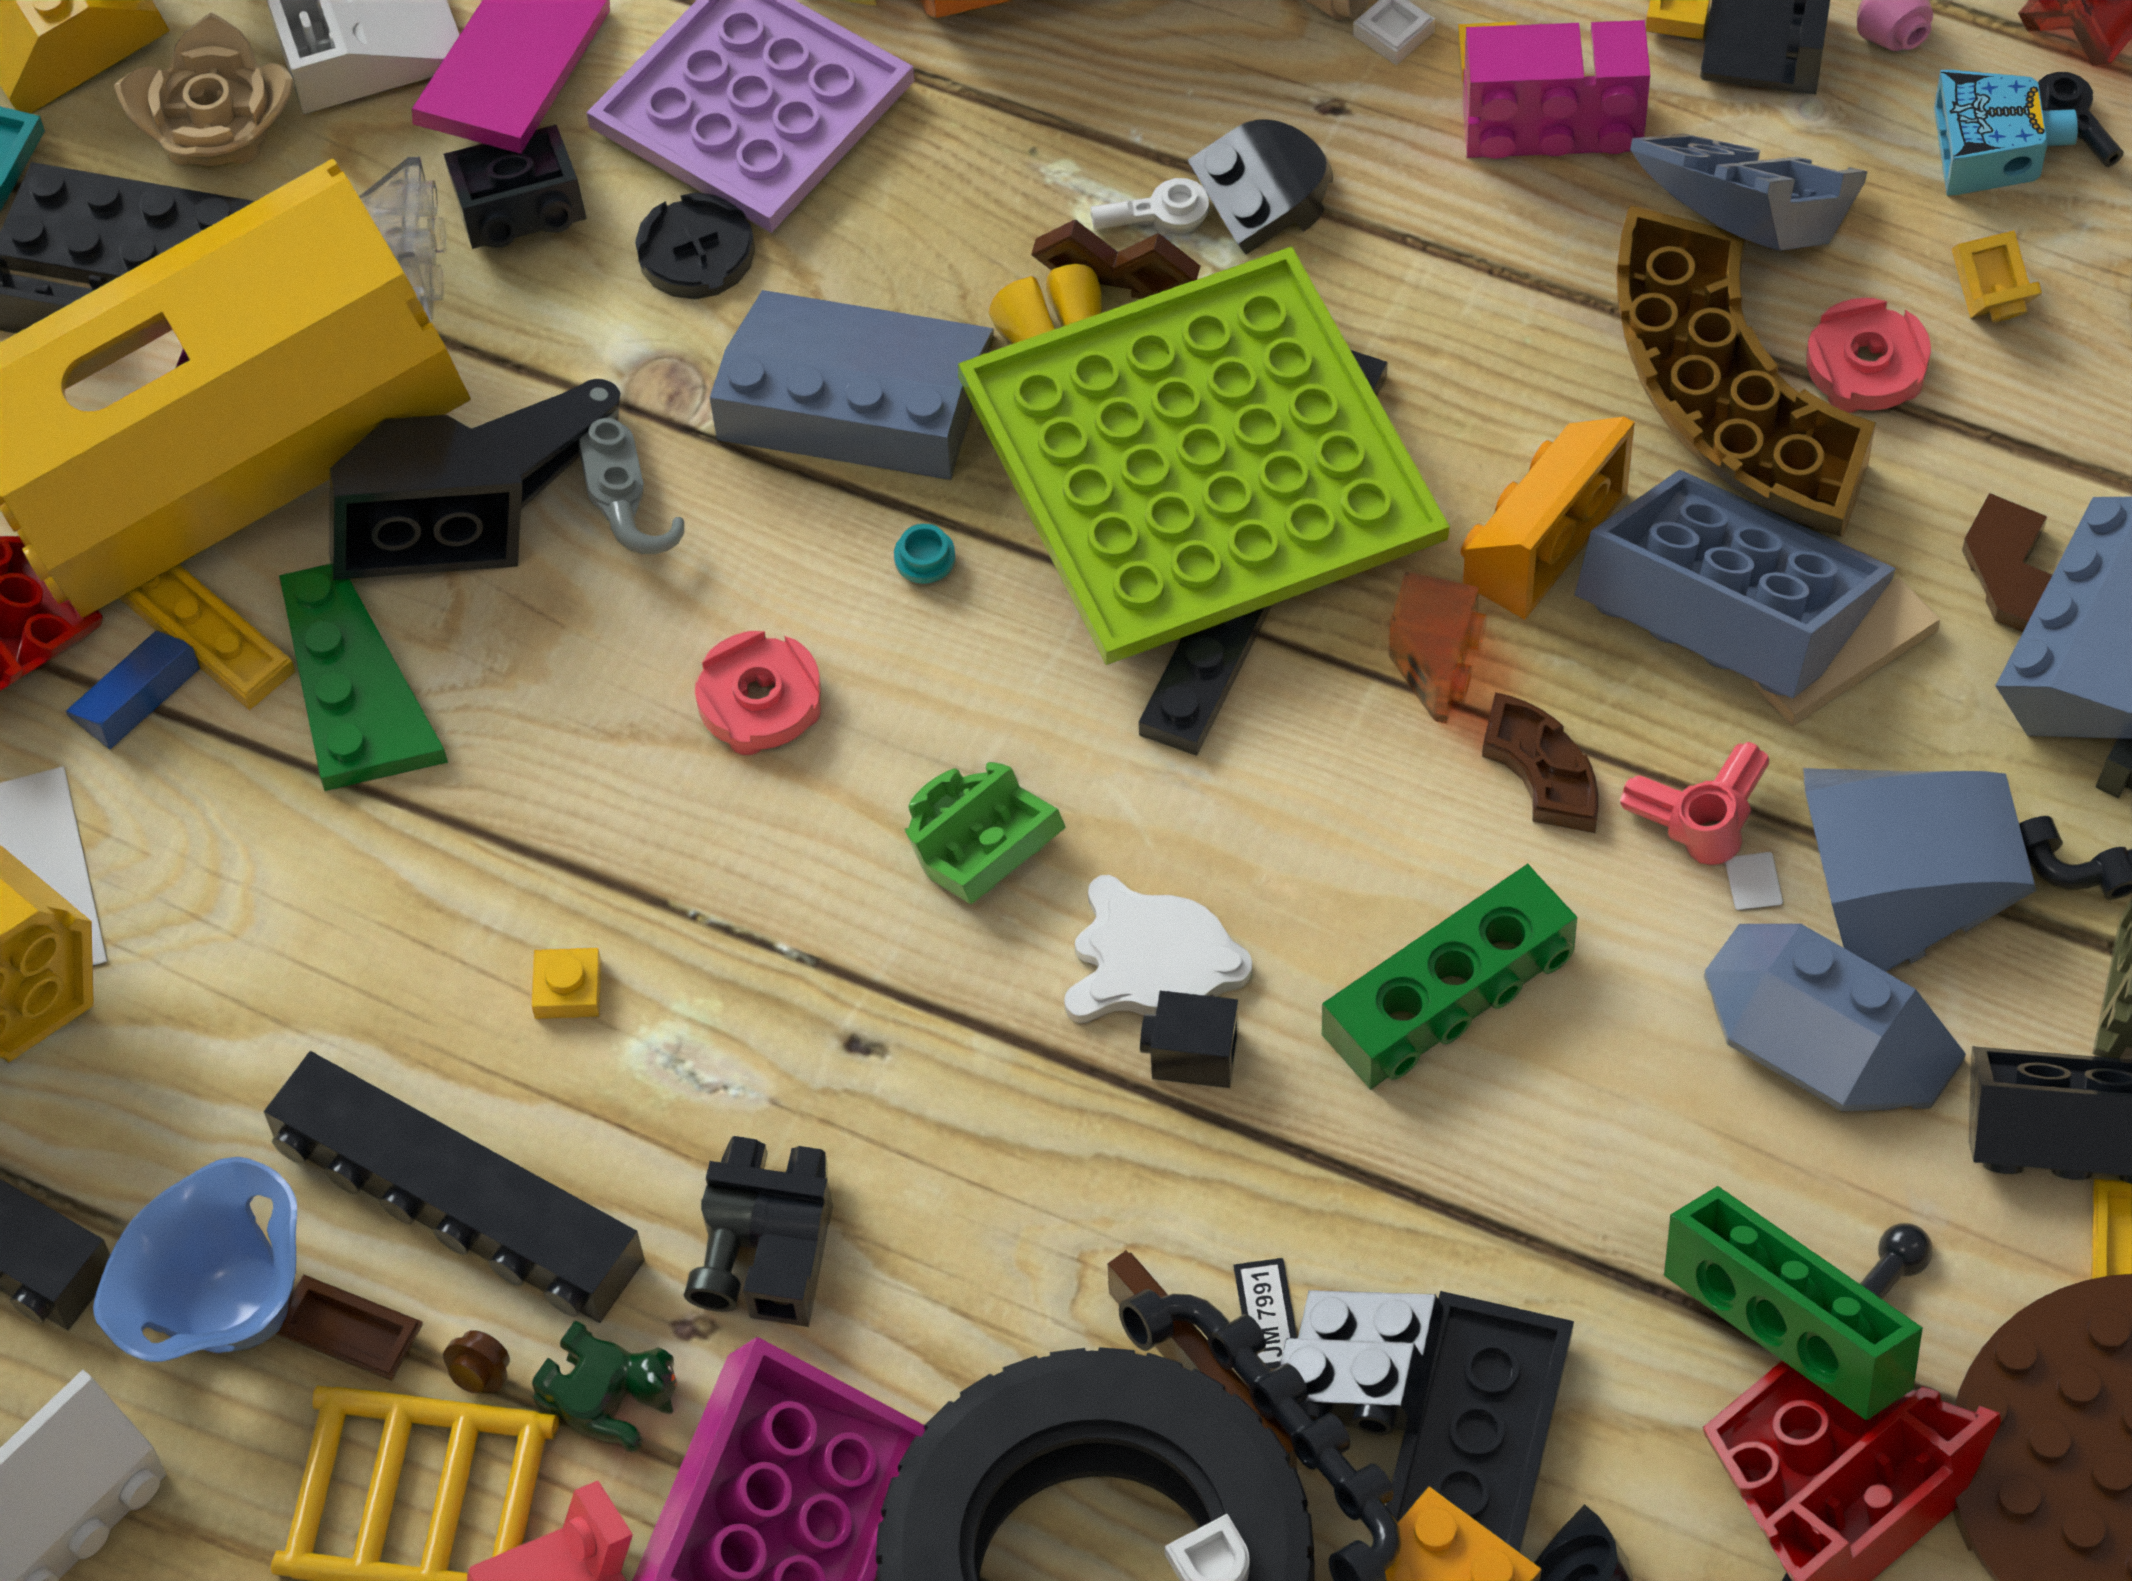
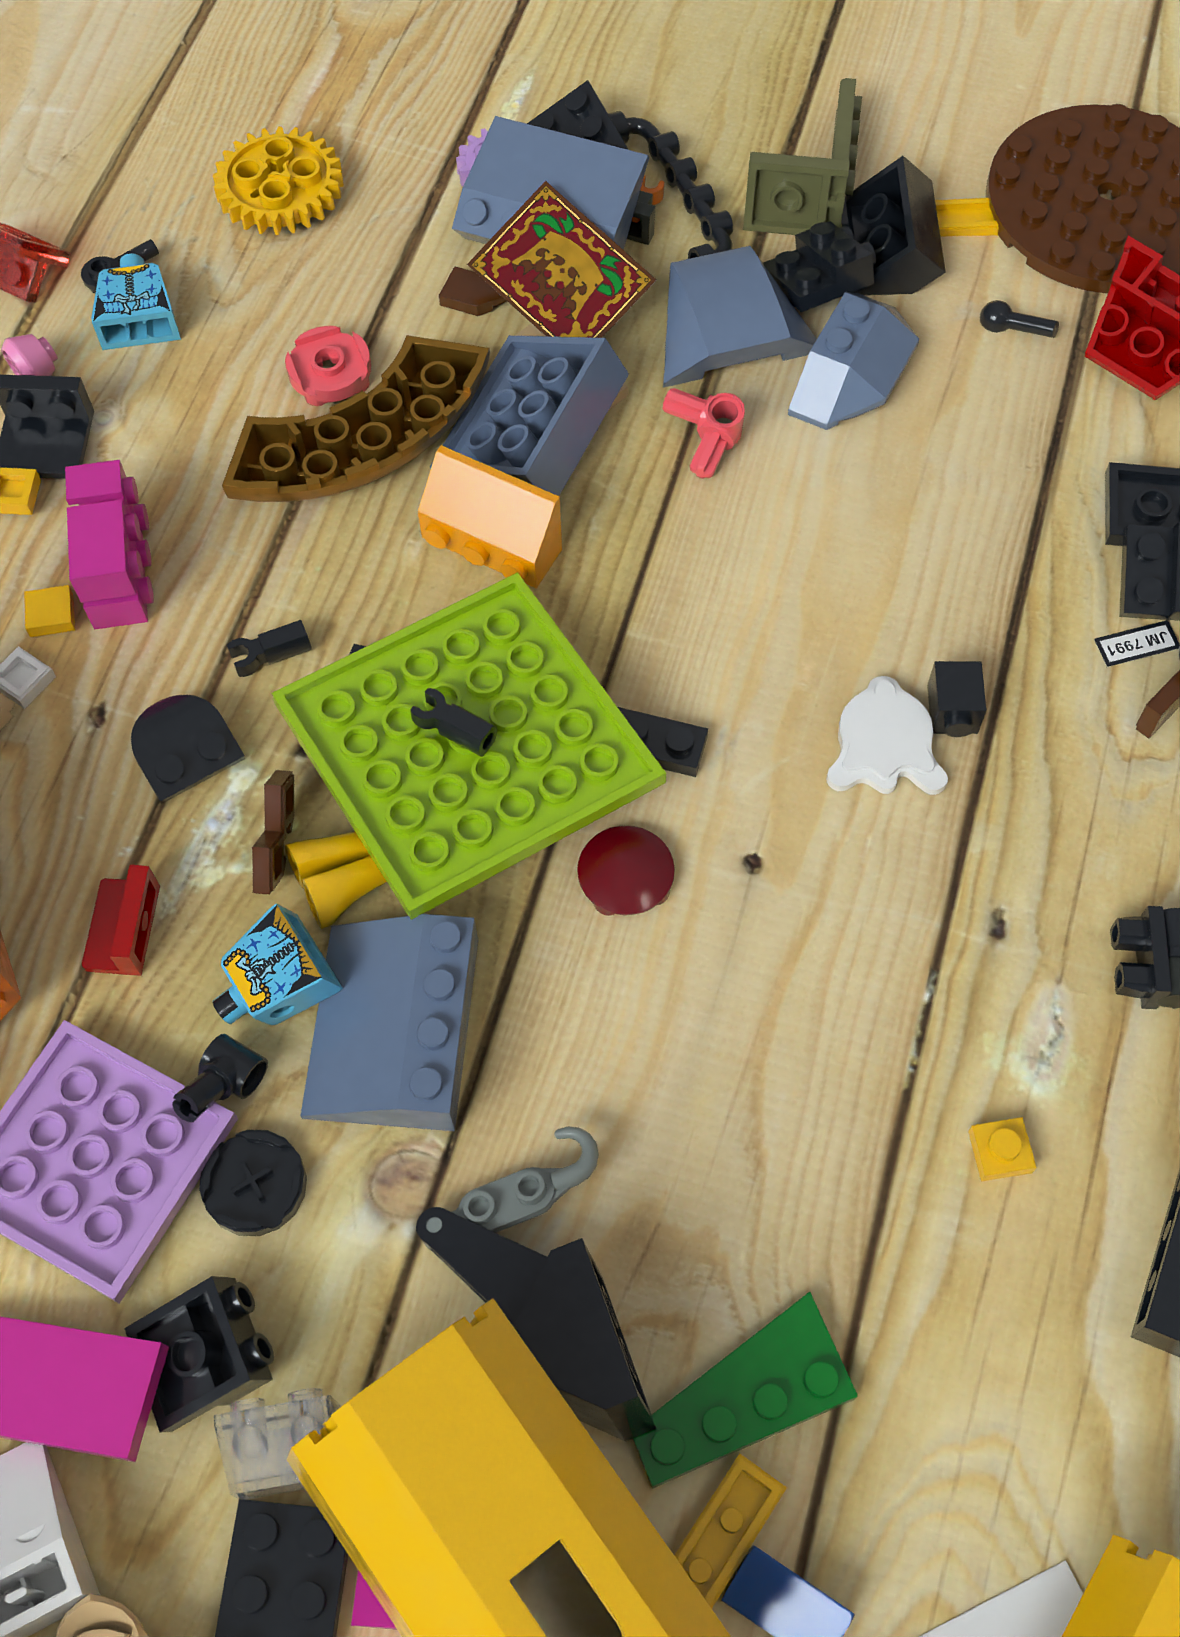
camera: 100 degrees left, 5 degrees up
(762, 722) = (709, 1074): coral plate -> none
(821, 214) = (223, 1070): none -> black pin
(924, 554) = (561, 942): teal plate -> none
(935, 259) = (274, 971): none -> torso
(977, 828) = (811, 863): bright green slope -> none
(1010, 634) = (625, 871): none -> dark red dish
(1031, 128) = (122, 923): none -> red panel
(1174, 207) = (205, 805): white plate -> none
(1204, 423) = (455, 723): none -> black bar
(1398, 279) = (269, 647): none -> black bar
(1431, 636) = (603, 588): clear orange slope -> none
(1513, 911) = (817, 523): green brick -> none
(1547, 762) = (681, 522): reddish brown tile -> none
(1754, 881) = (756, 407): white sticker -> none
(1764, 201) = (200, 419): sand blue wedge -> none
(1793, 1302) = (1081, 338): green brick -> none
(1984, 621) = (561, 269): none -> sticker
(1994, 277) = (264, 299): yellow bracket -> none
(1999, 990) = (823, 266): none -> black plate

